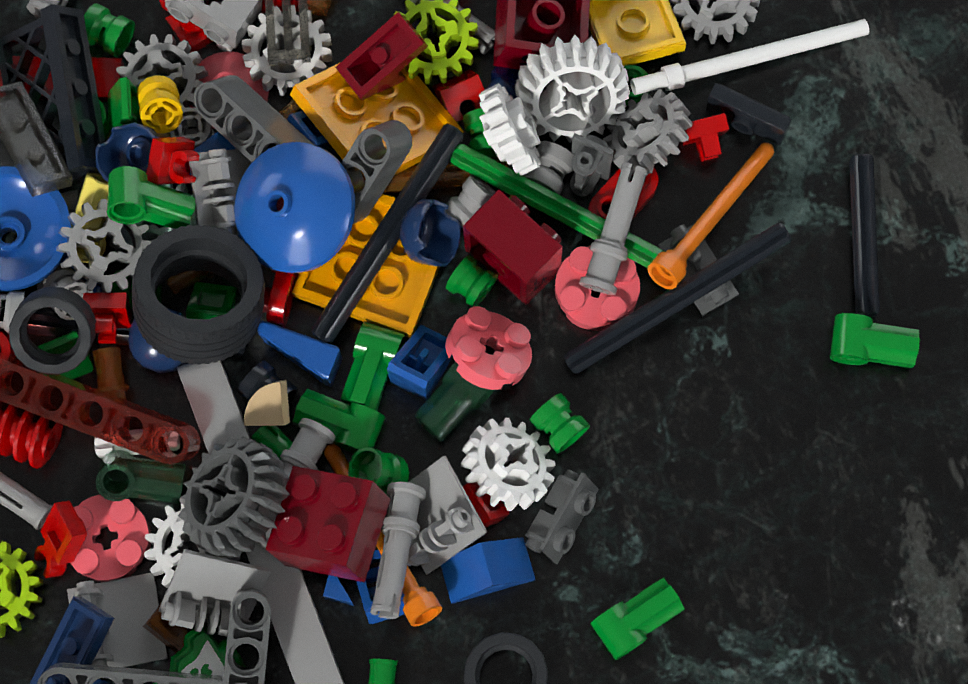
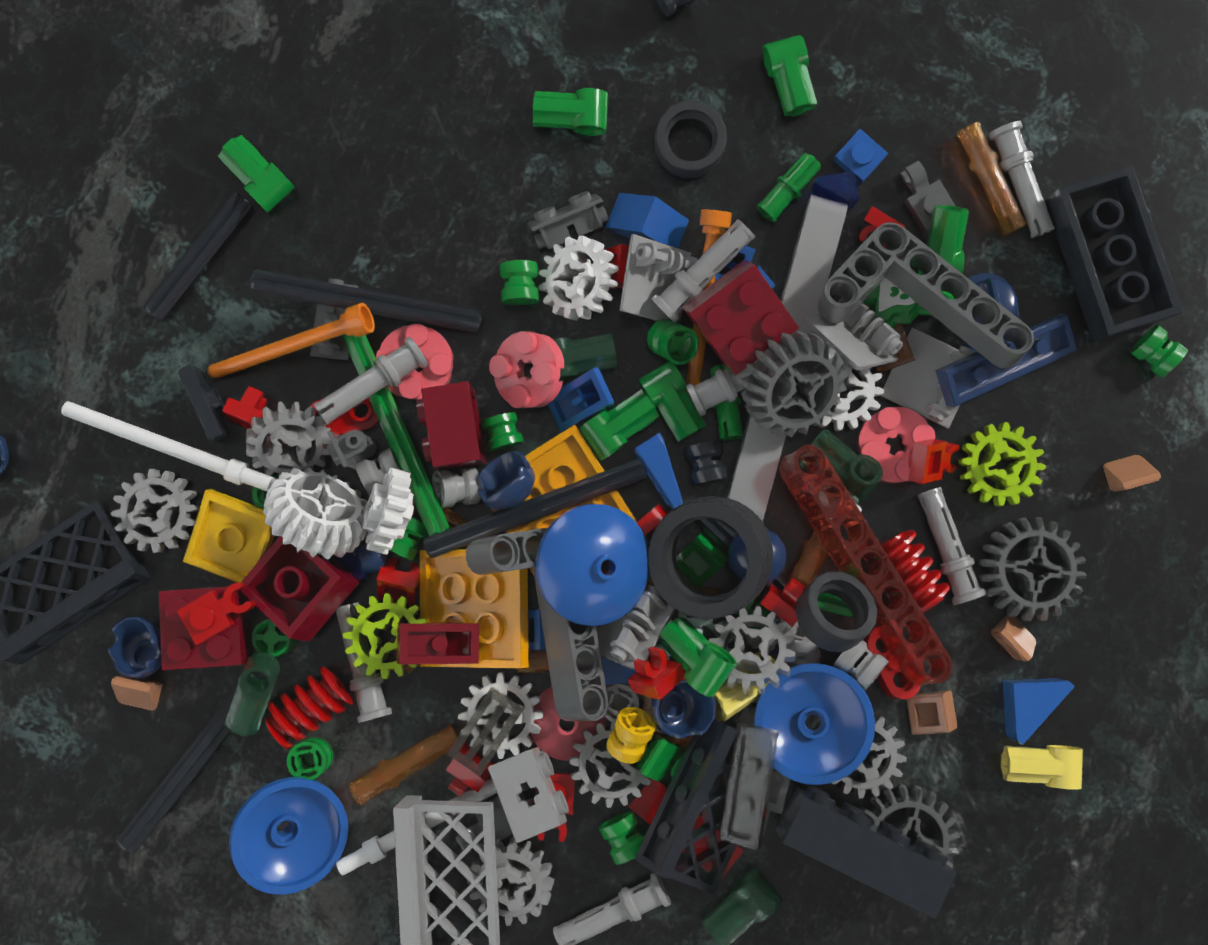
camera: 145 degrees left, 10 degrees up
(268, 406) = (717, 441): tan tile -> none

